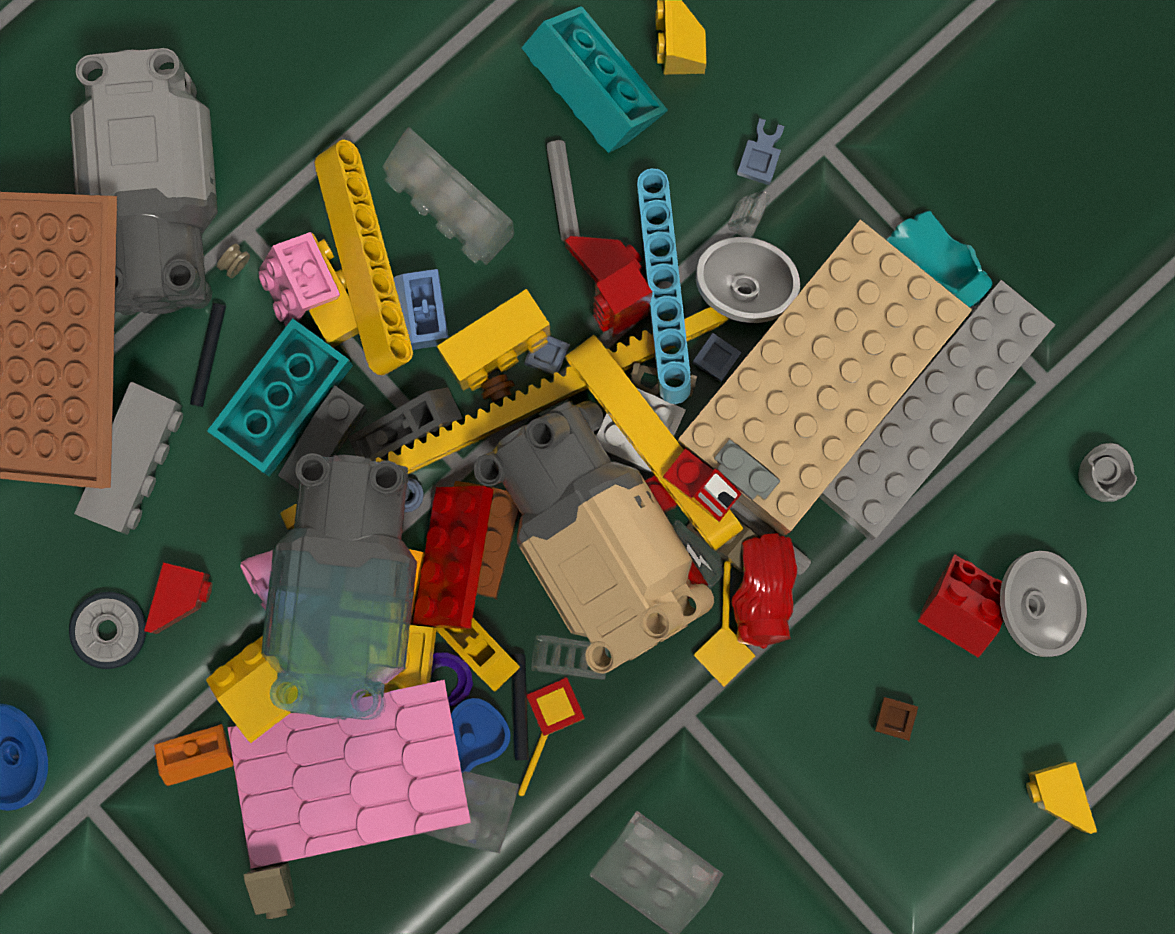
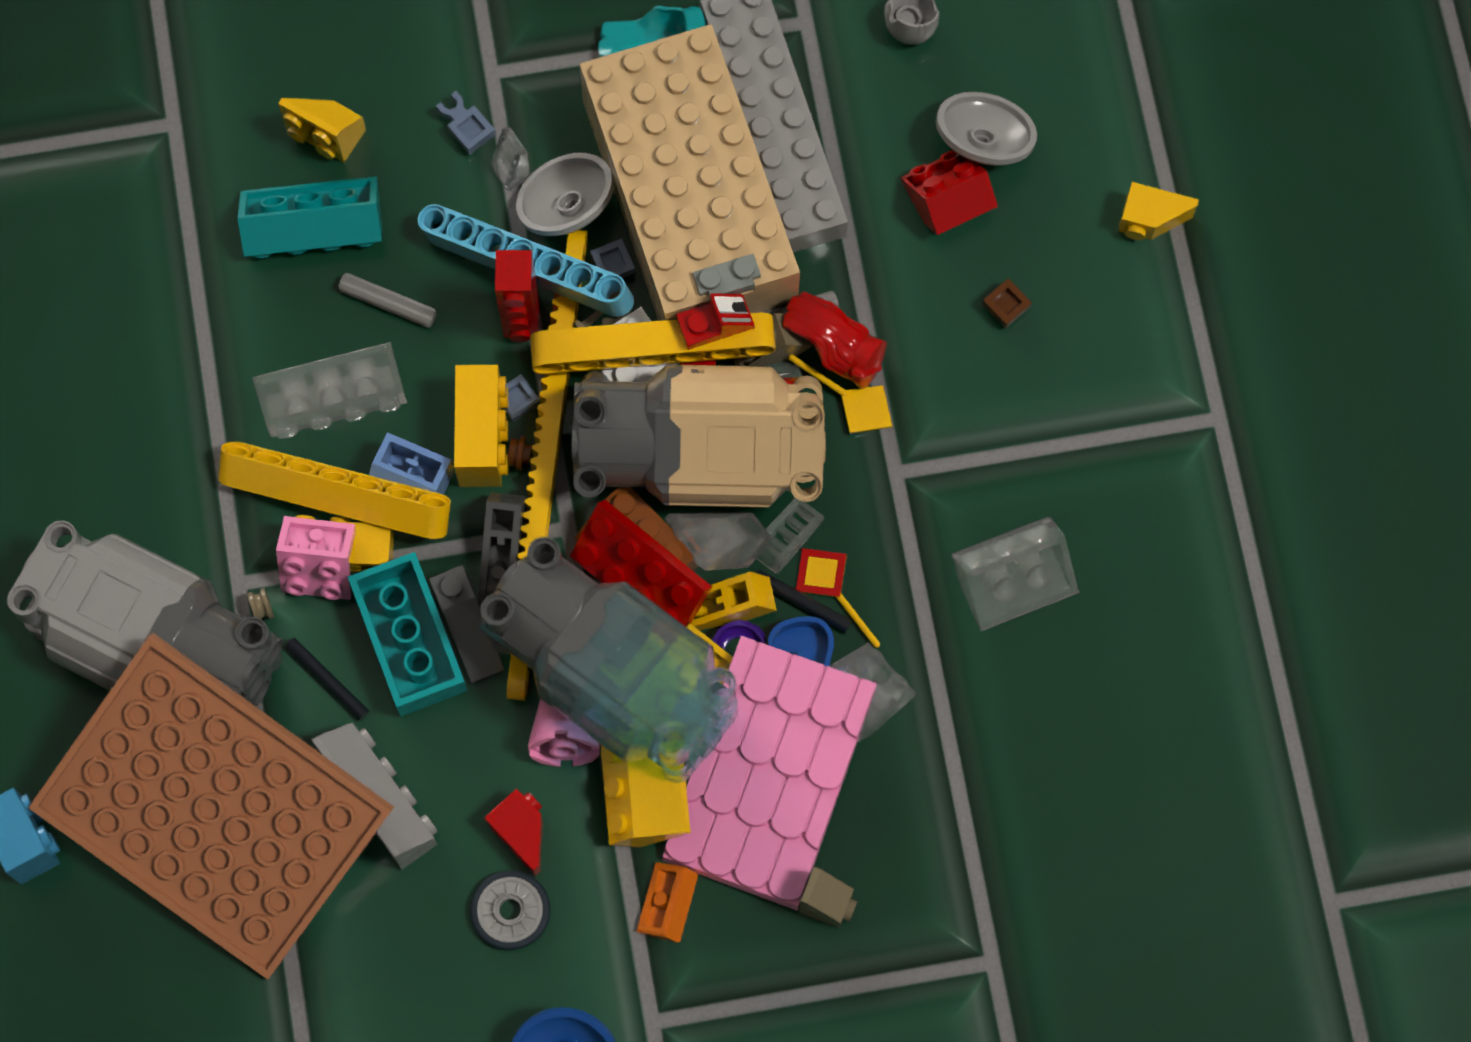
camera: 55 degrees left, 10 degrees down
(521, 605) = (720, 538): none -> clear slope
(601, 256) = (468, 301): red slope -> none

